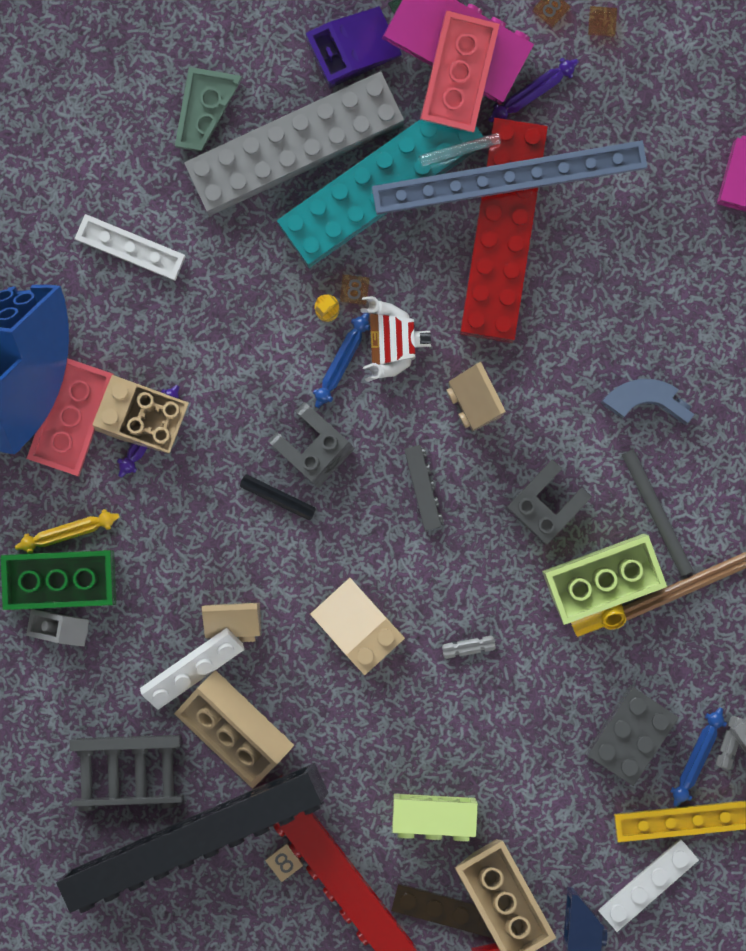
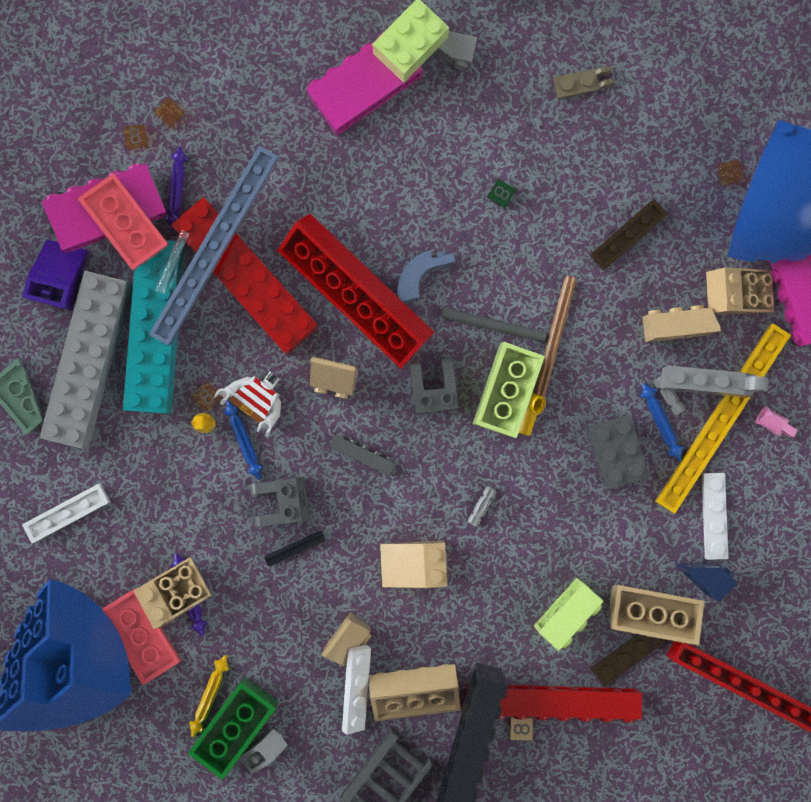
camera: 55 degrees left, 0 degrees up
(578, 349) = (355, 290): none -> red brick

